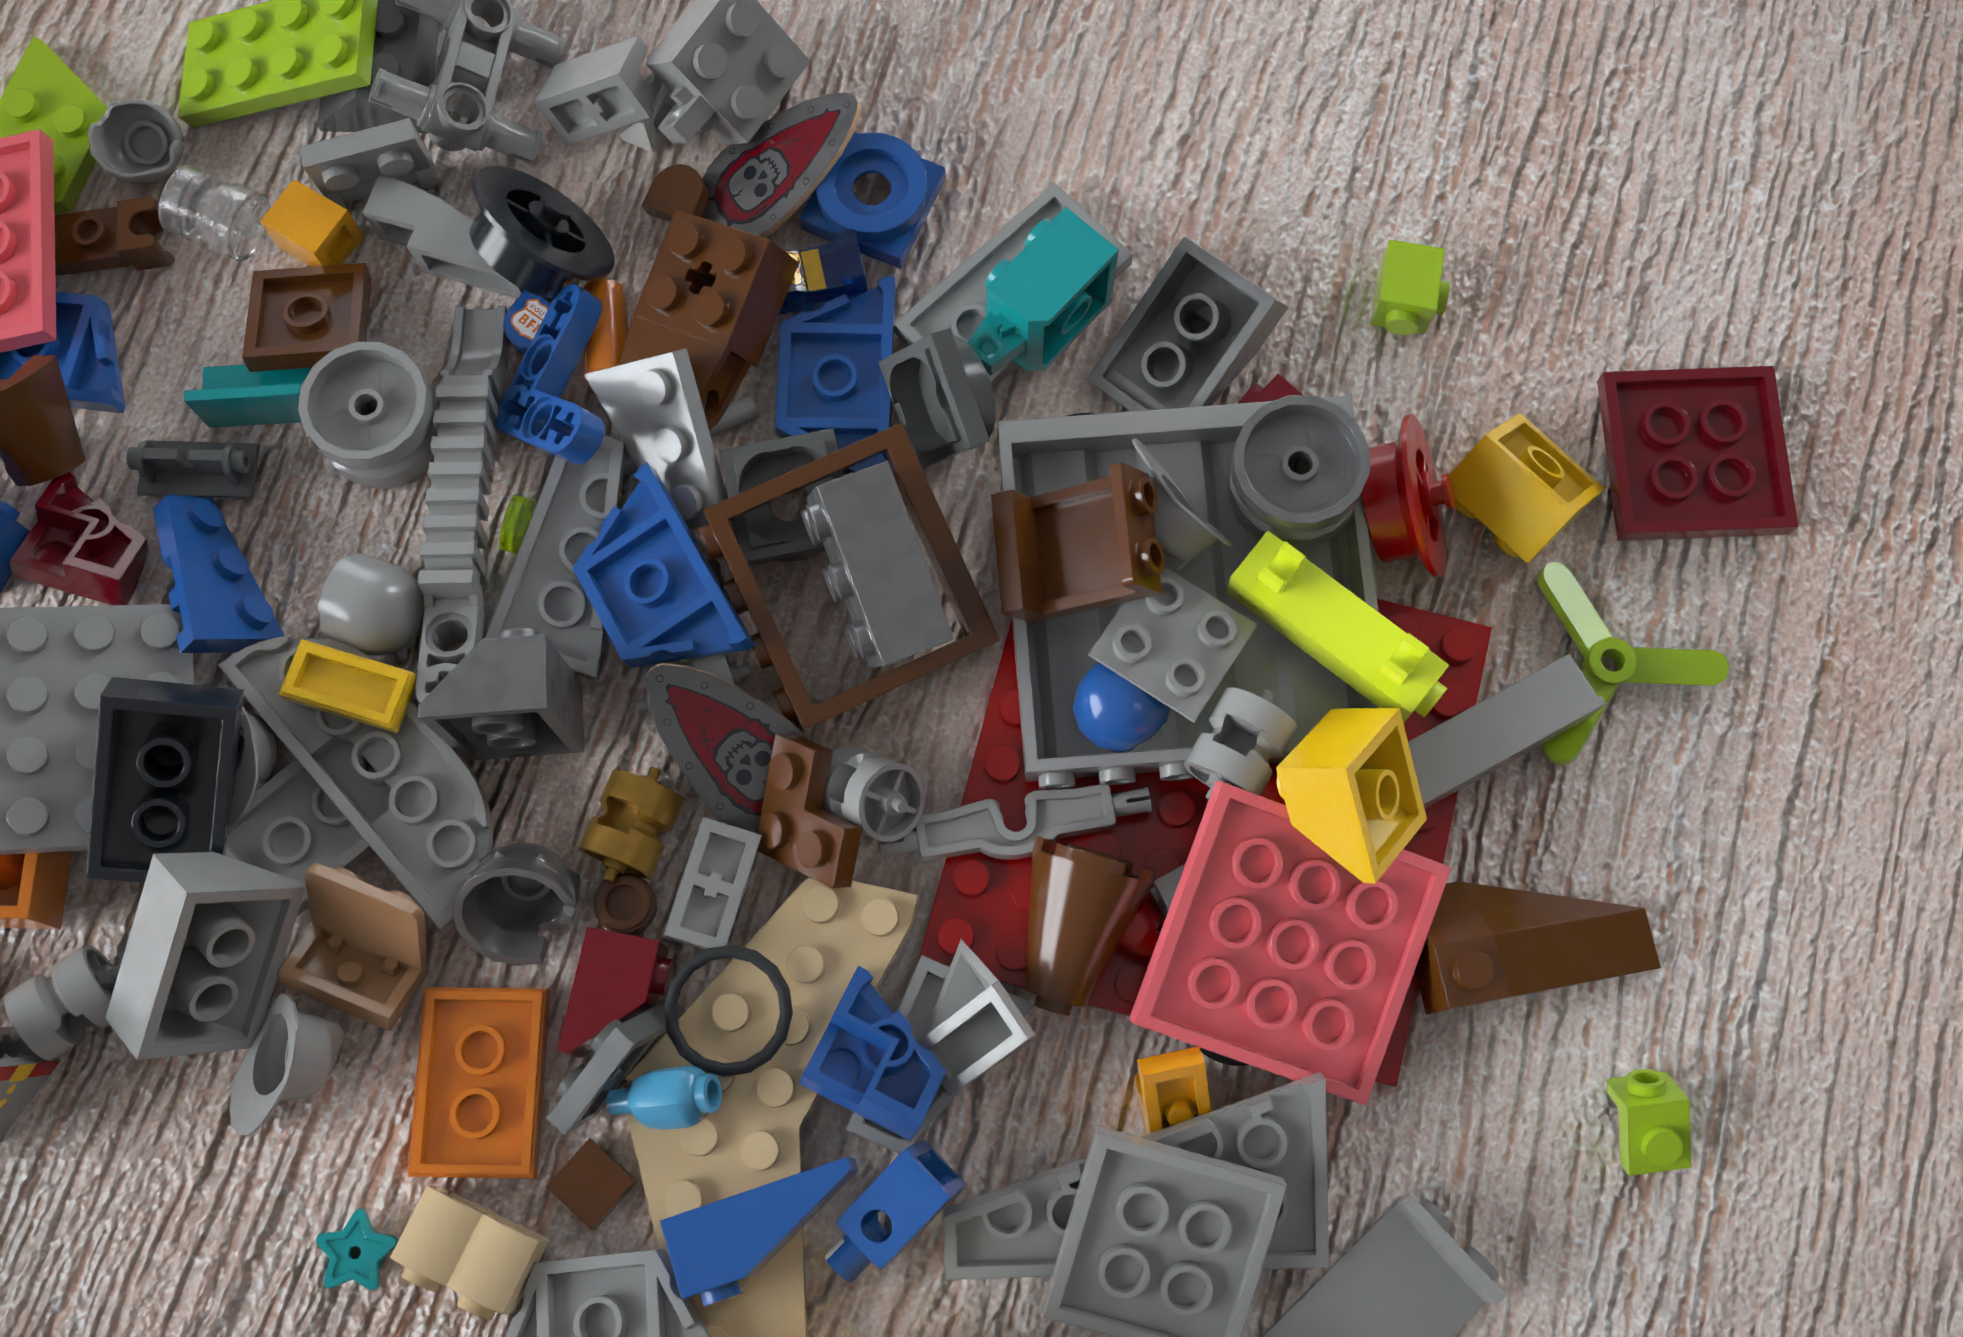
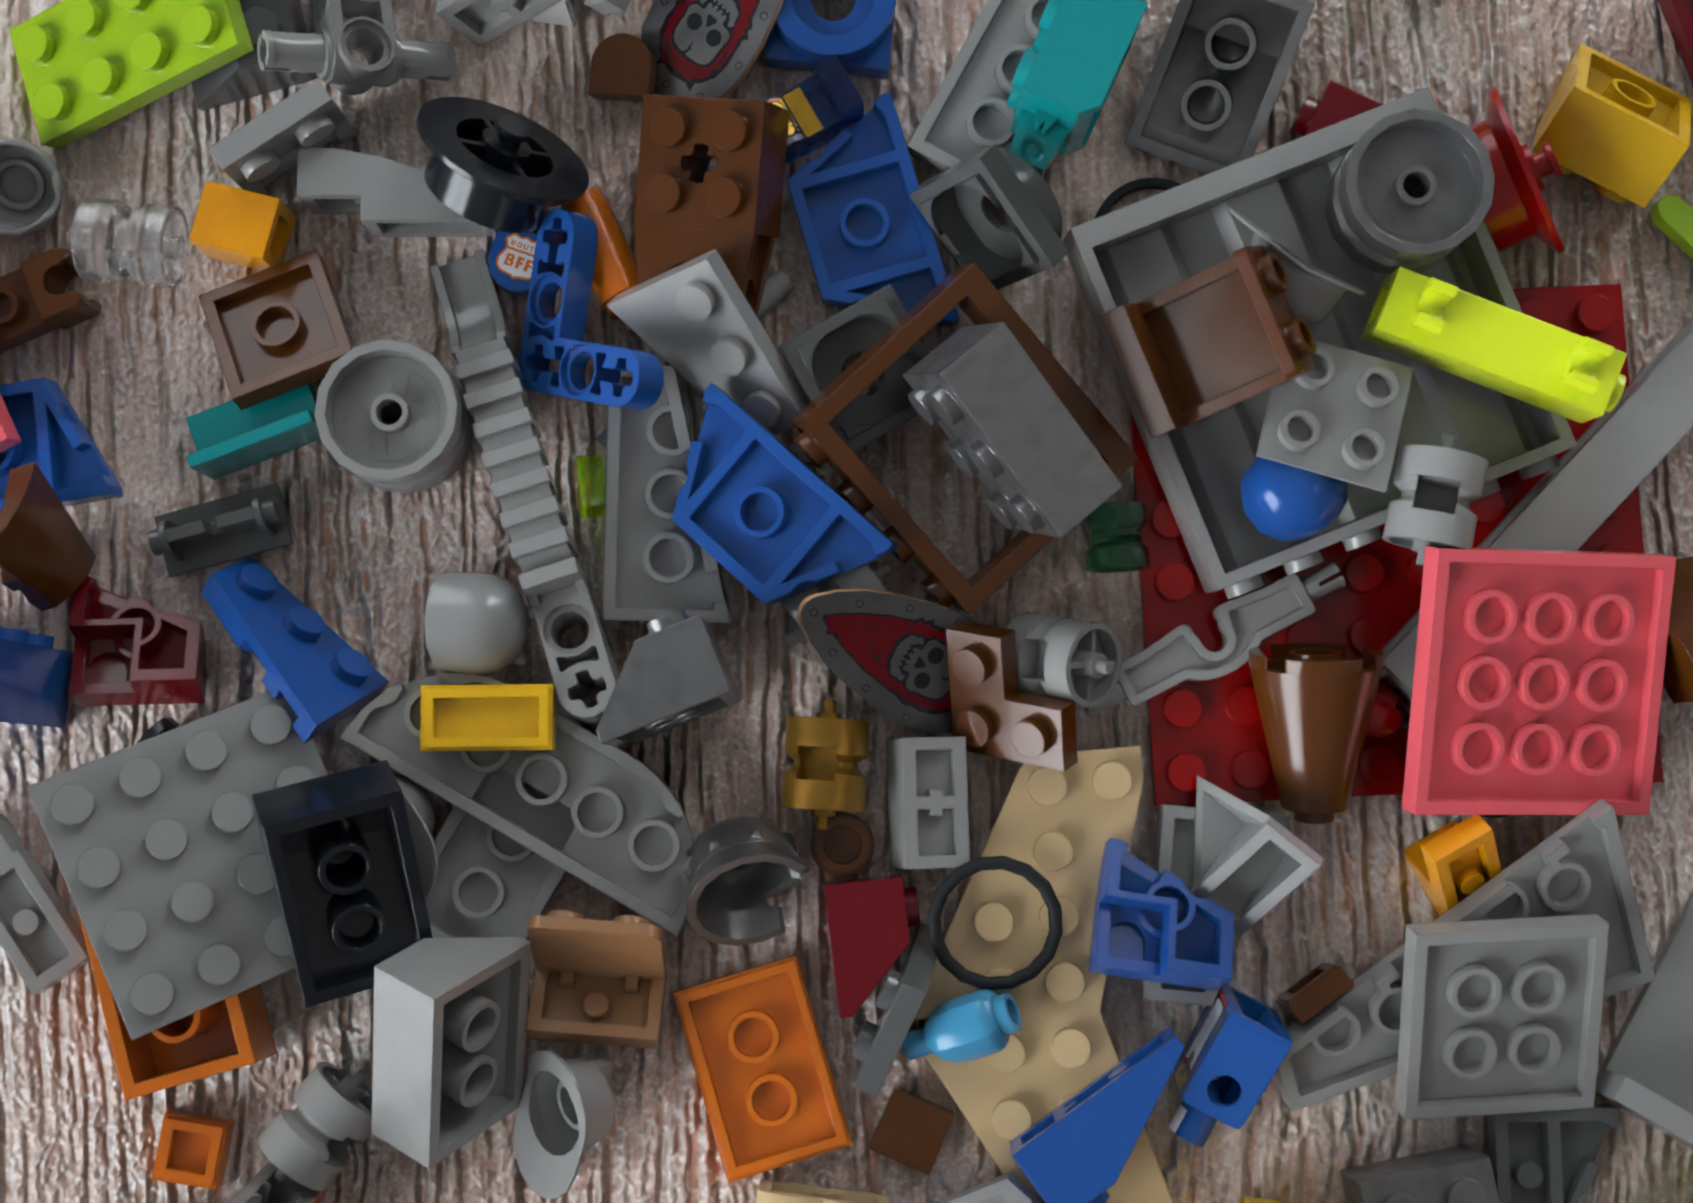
camera: 20 degrees left, 10 degrees up
(961, 707) = (1116, 538): none -> clear green wheel
(1002, 1172) = (1314, 992): none -> reddish brown tile
(1354, 789) = (1567, 510): yellow slope -> none

